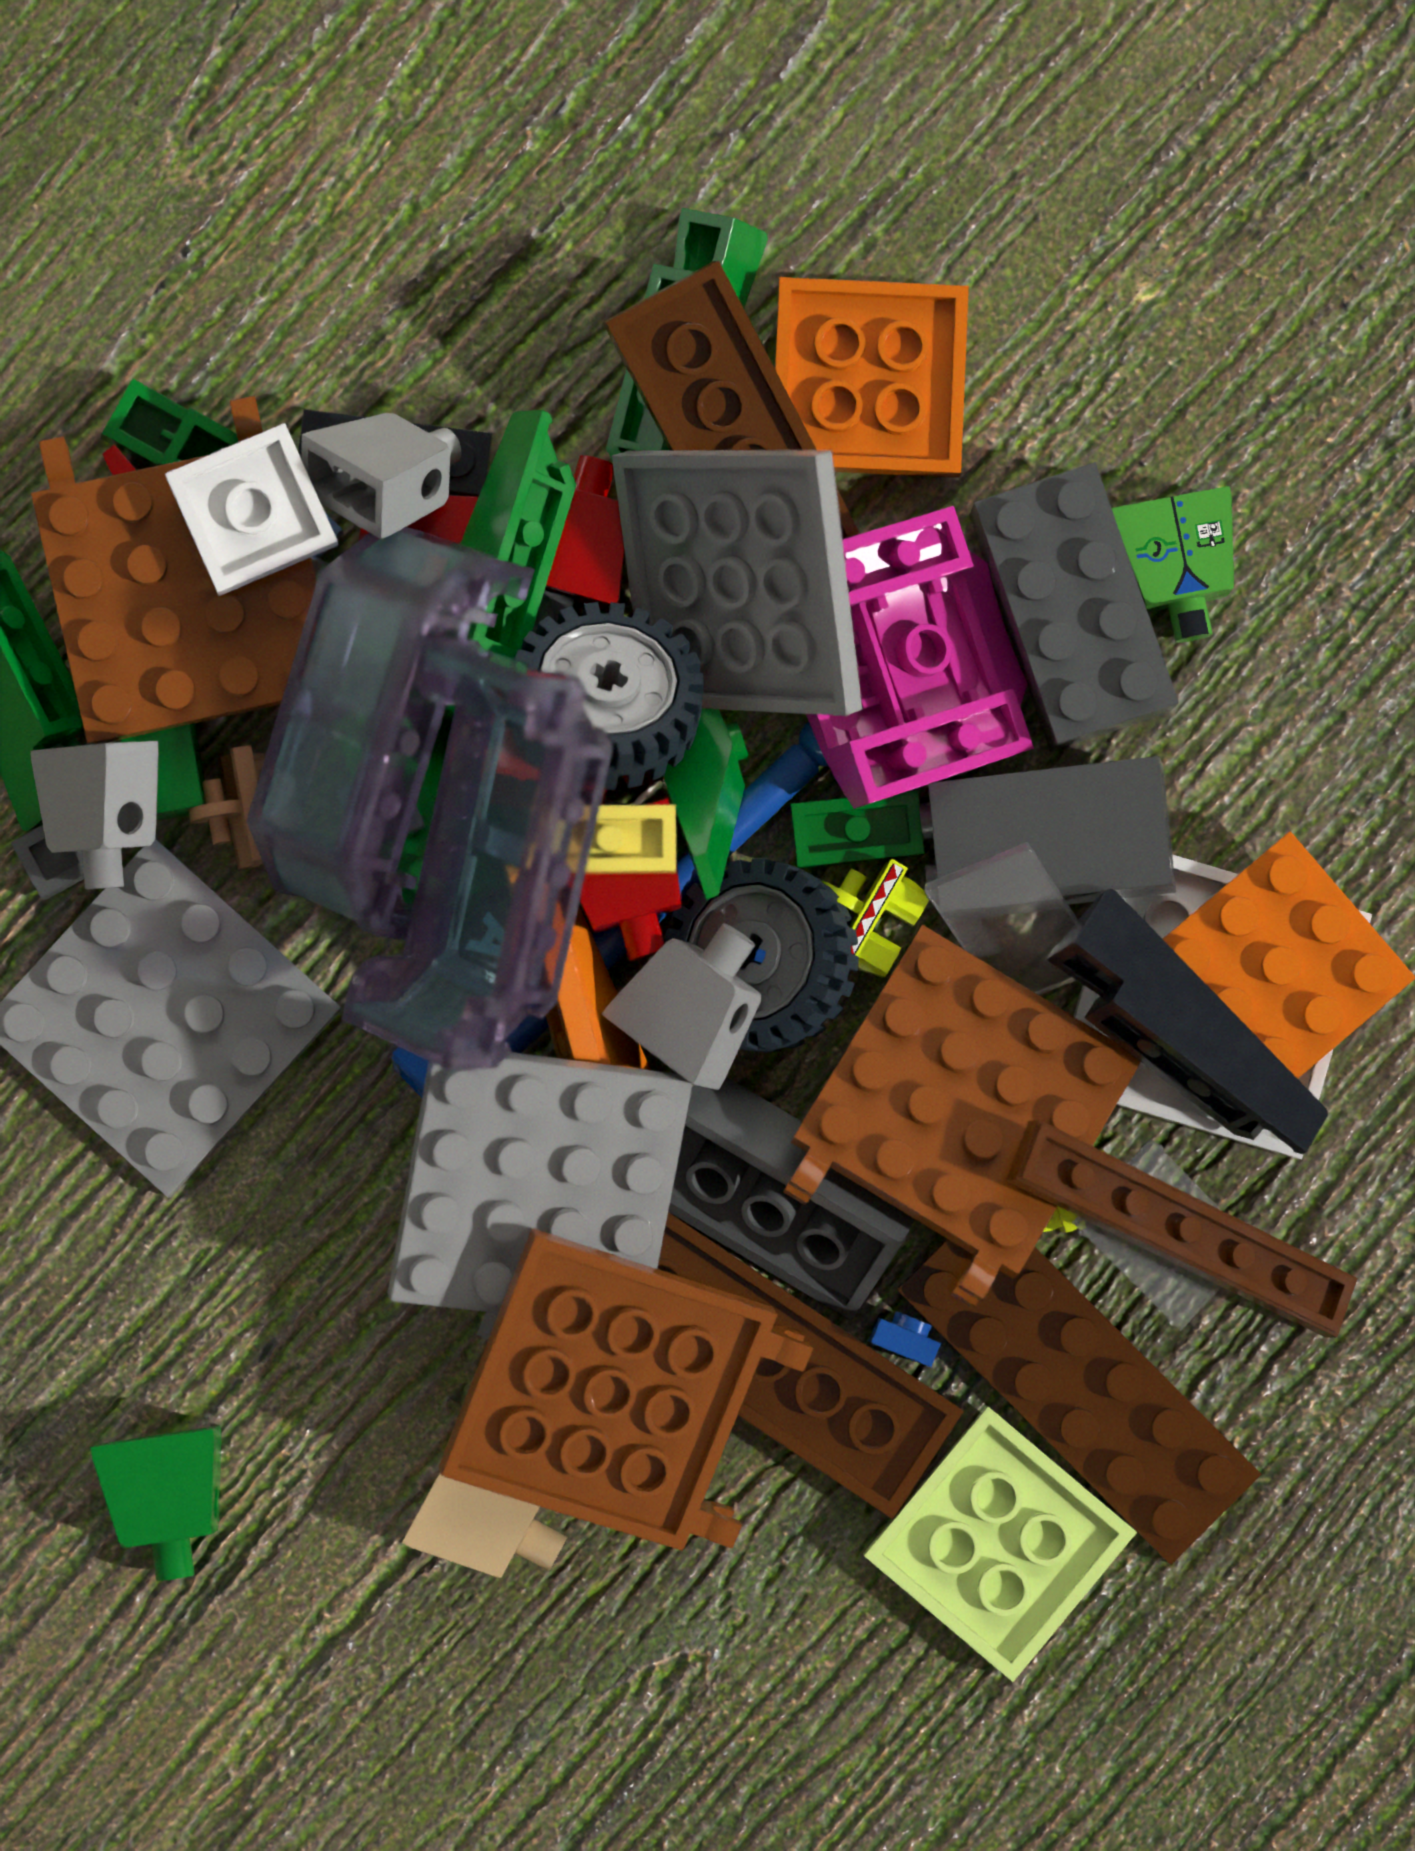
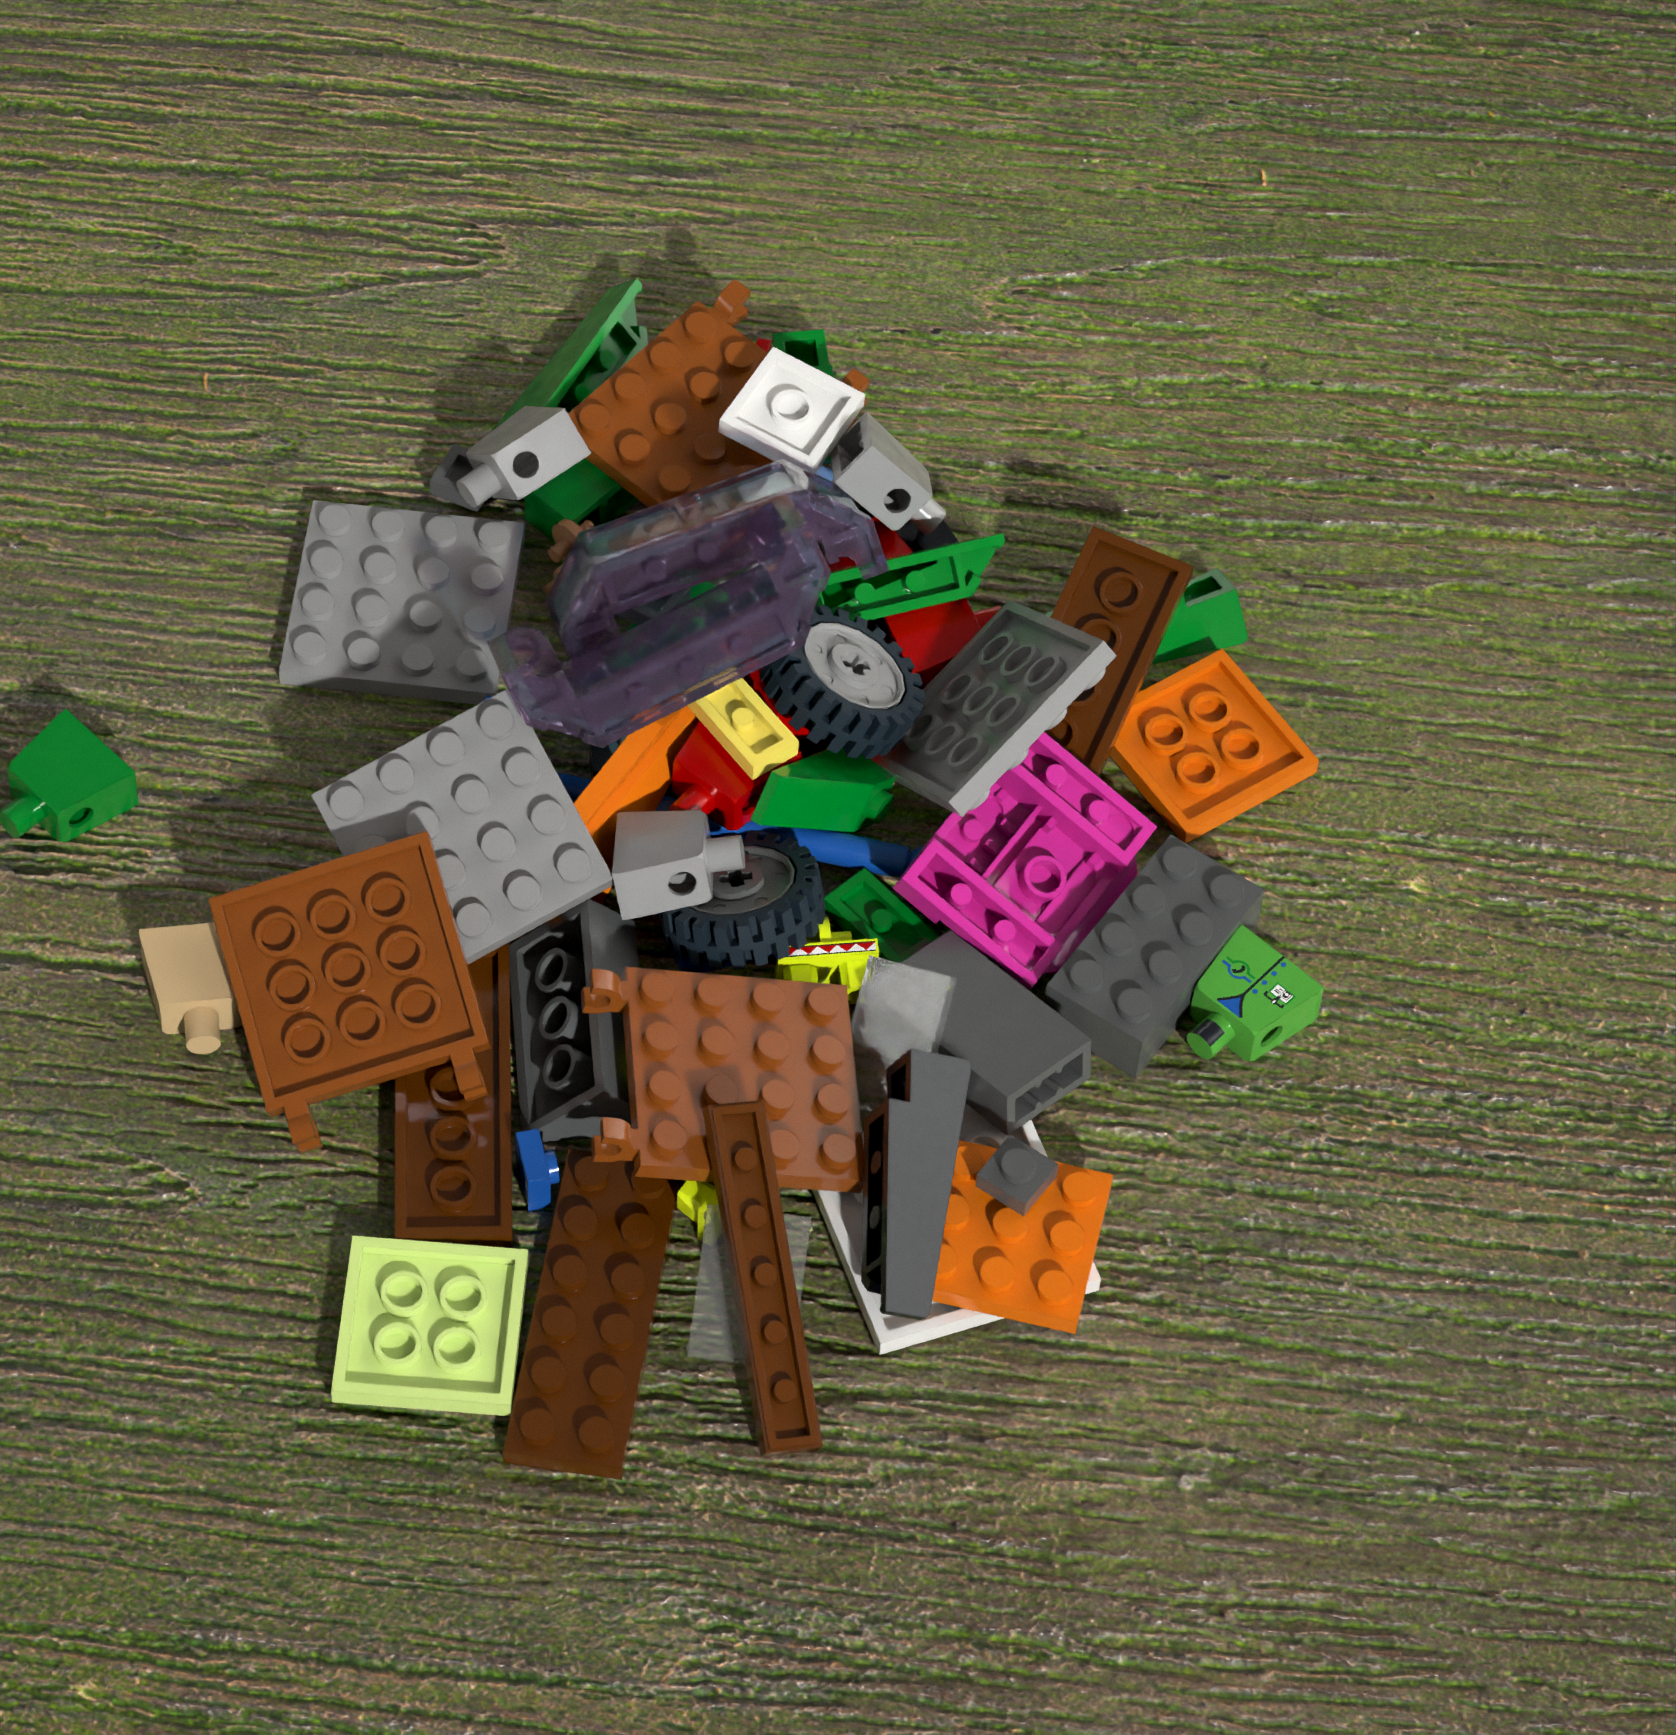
camera: 55 degrees right, 30 degrees down
(1246, 927) = (1016, 1175): none -> dark grey plate

